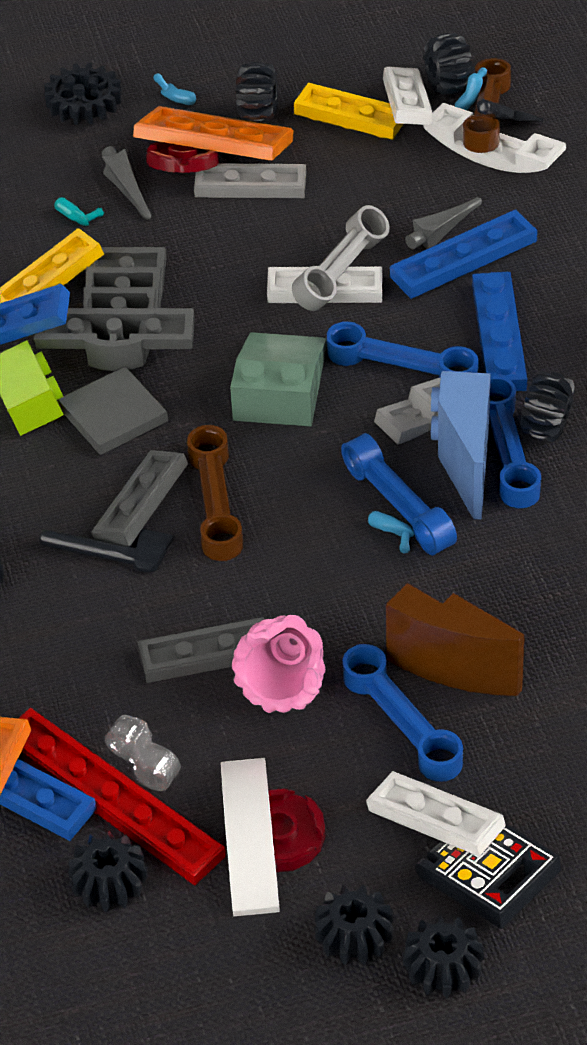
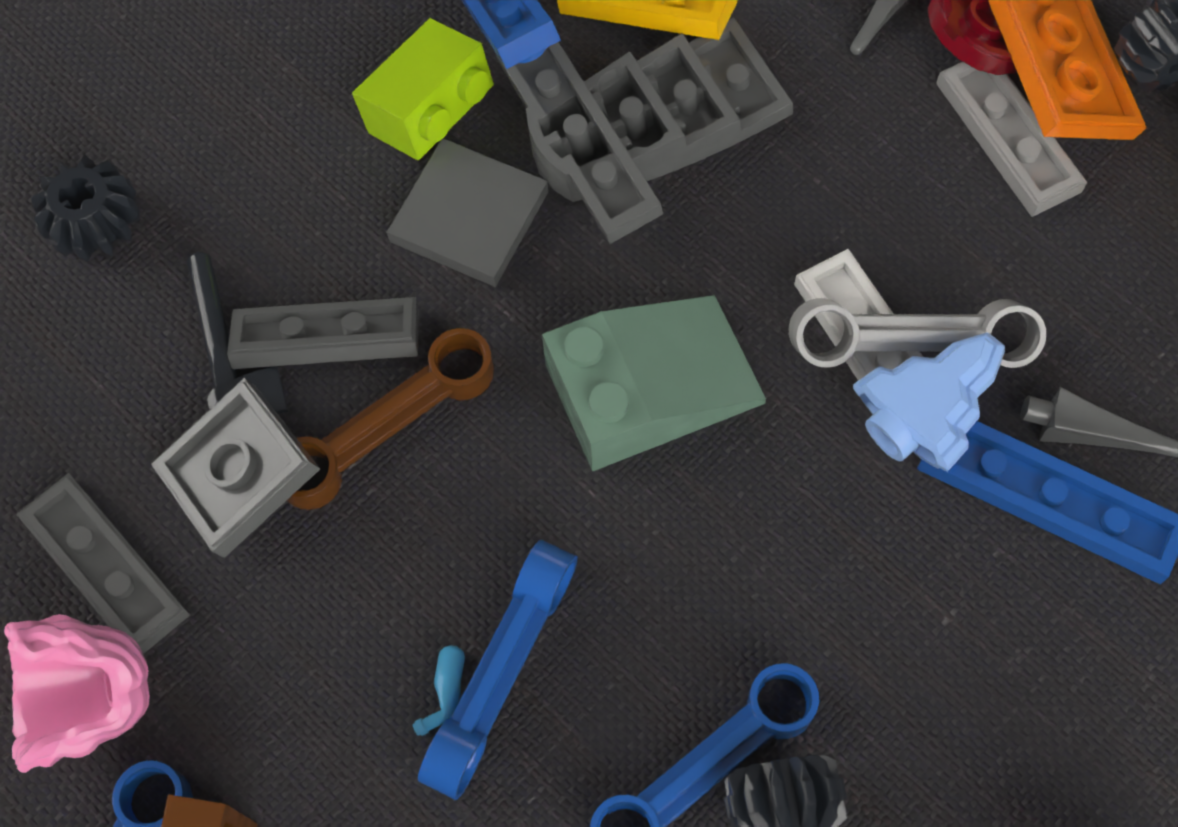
camera: 60 degrees right, 20 degrees up
(197, 558) = (234, 467): none -> tile
(385, 266) = (930, 401): none -> light blue rock
(393, 353) = (788, 521): blue piece -> none
(409, 417) = (697, 606): light grey slope -> none
(463, 432) = (648, 703): medium blue slope -> none
(499, 327) = (930, 631): blue plate -> none

